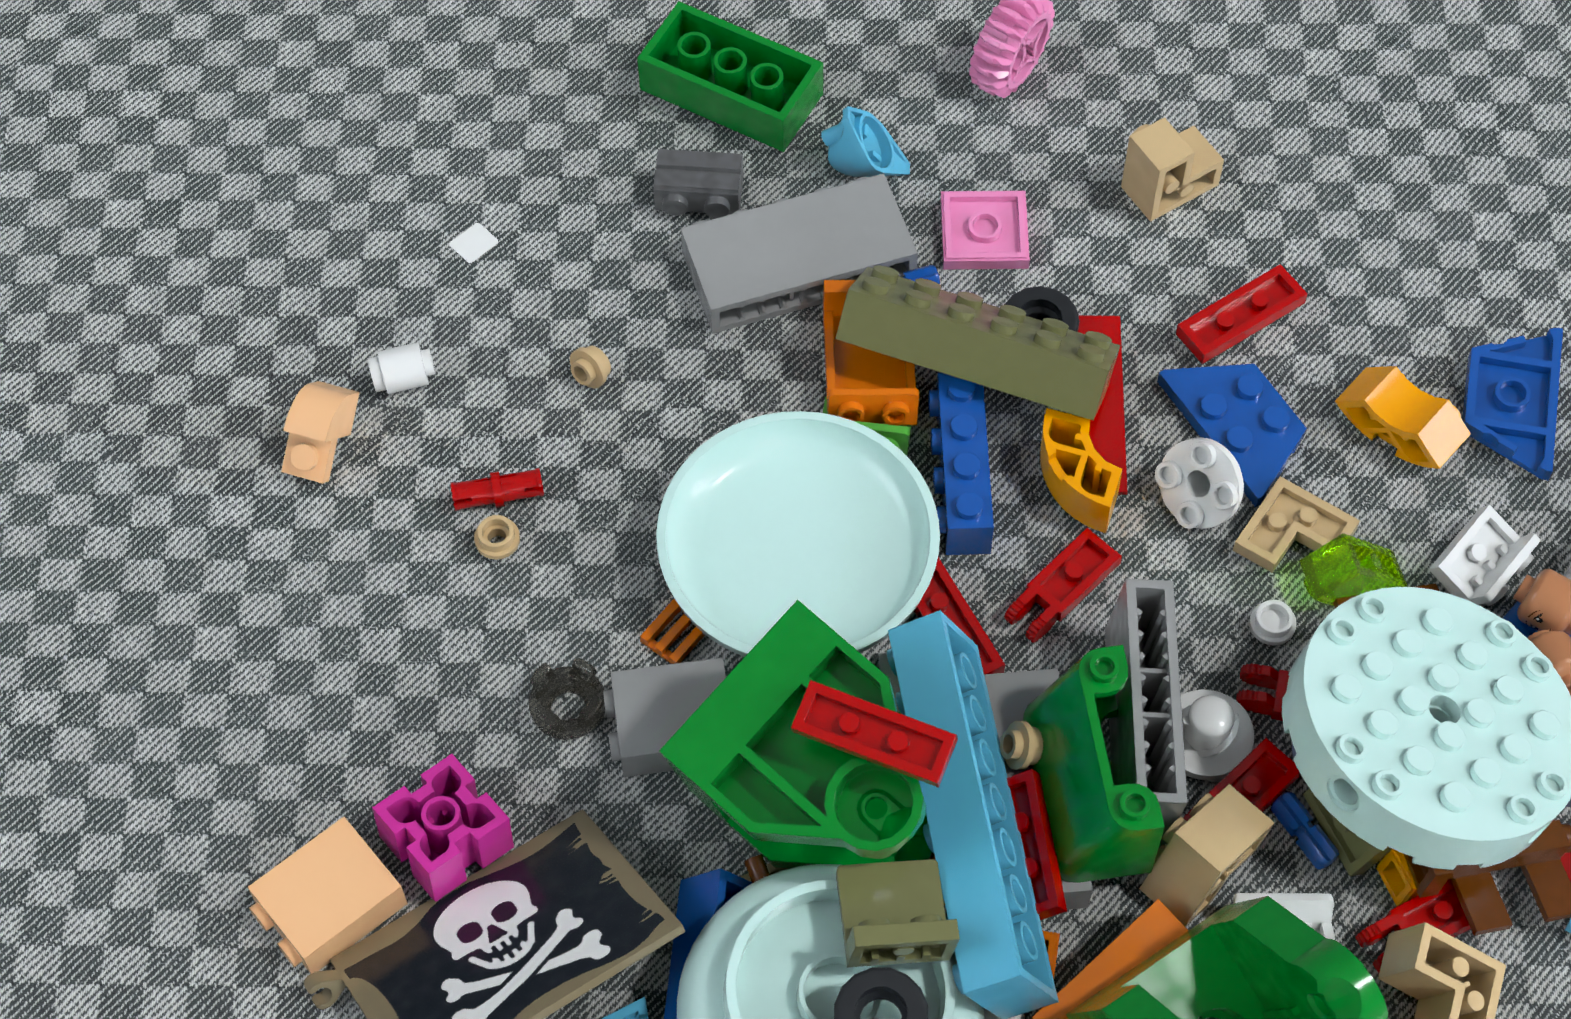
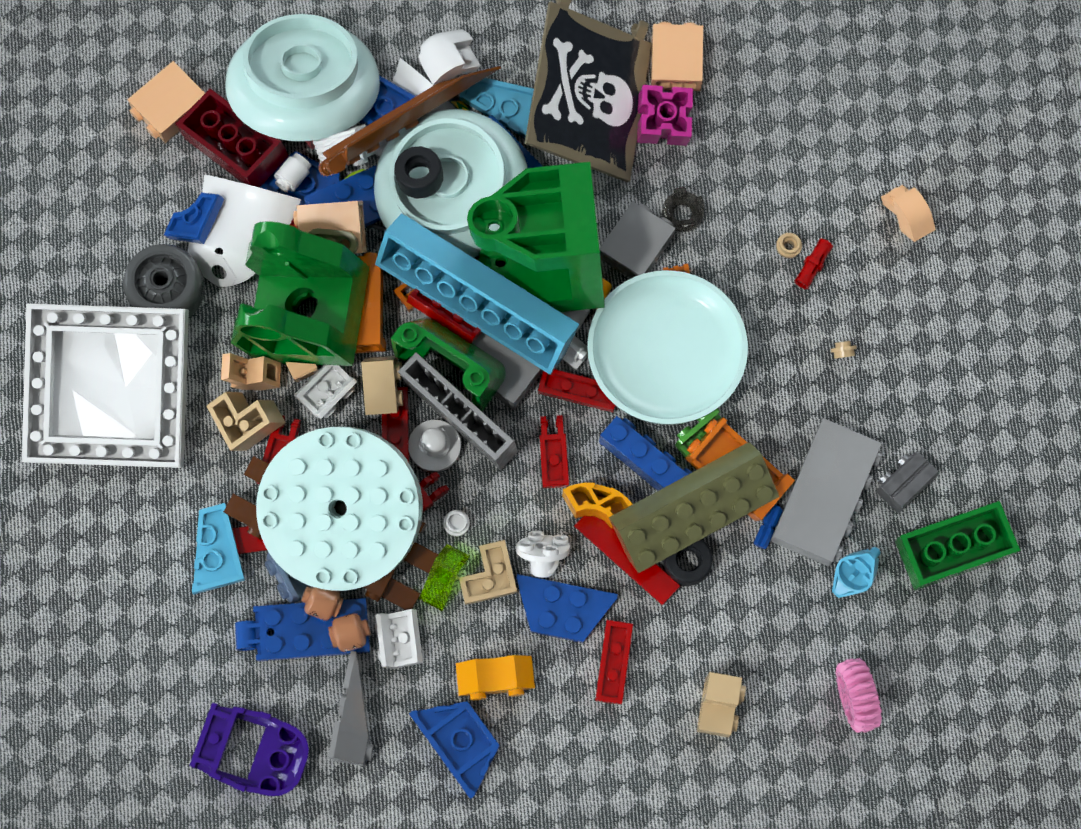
camera: 130 degrees right, 15 degrees up
(401, 368) = (913, 270): white brick -> none
(473, 242) = (964, 361): white sticker -> none
(874, 733) = (514, 230): red plate -> none
(894, 913) = (447, 210): olive bracket -> none
(984, 230) = (767, 593): bright pink tile -> none
(1021, 745) = (488, 346): tan plate -> none

